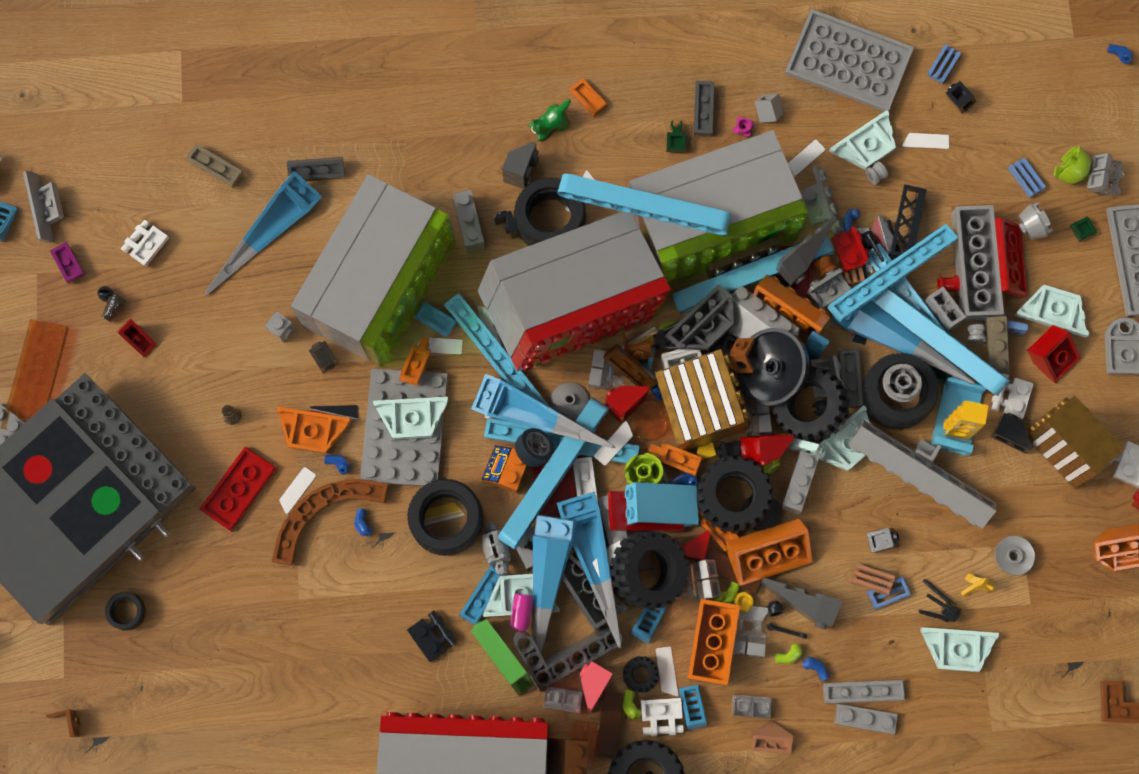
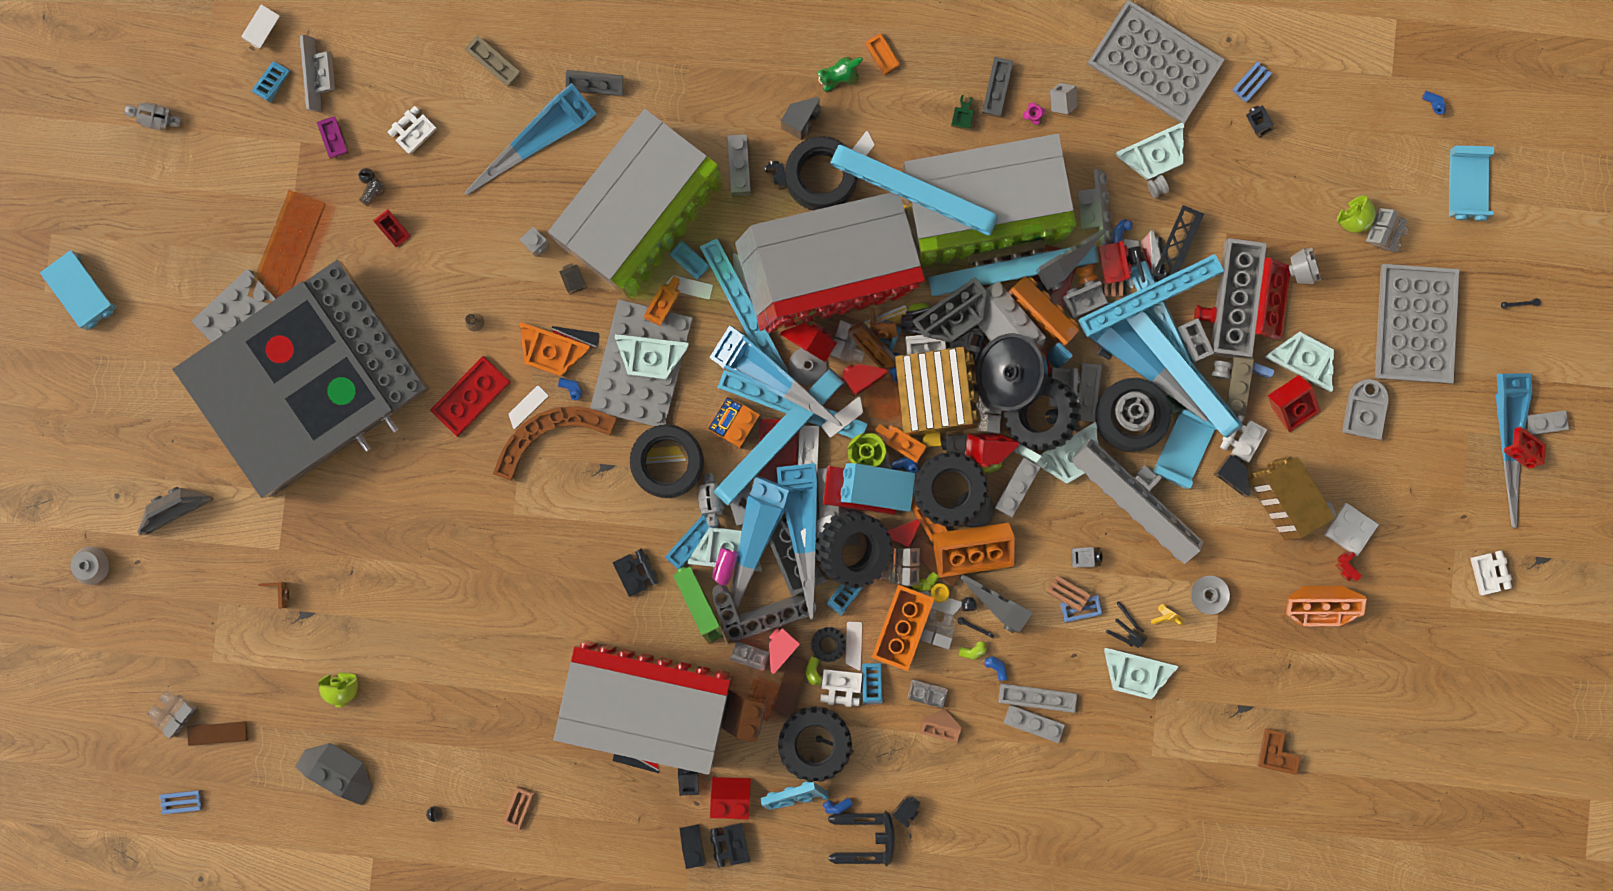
camera: 10 degrees right, 10 degrees up
(113, 601) = (330, 497): black tyre -> none
(360, 524) = (583, 452): blue arm -> none
(534, 447) = (764, 409): black wheel -> none
(568, 372) = (811, 339): none -> red slope
(739, 354) = (982, 352): dark orange bracket -> none
(805, 157) = (1089, 156): white sticker -> none
(927, 141) = (1217, 160): white sticker -> none
(965, 420) = (1189, 458): yellow brick -> none
(1024, 163) = (1309, 200): medium blue tile -> none
(1083, 229) = (1353, 280): dark green tile -> none

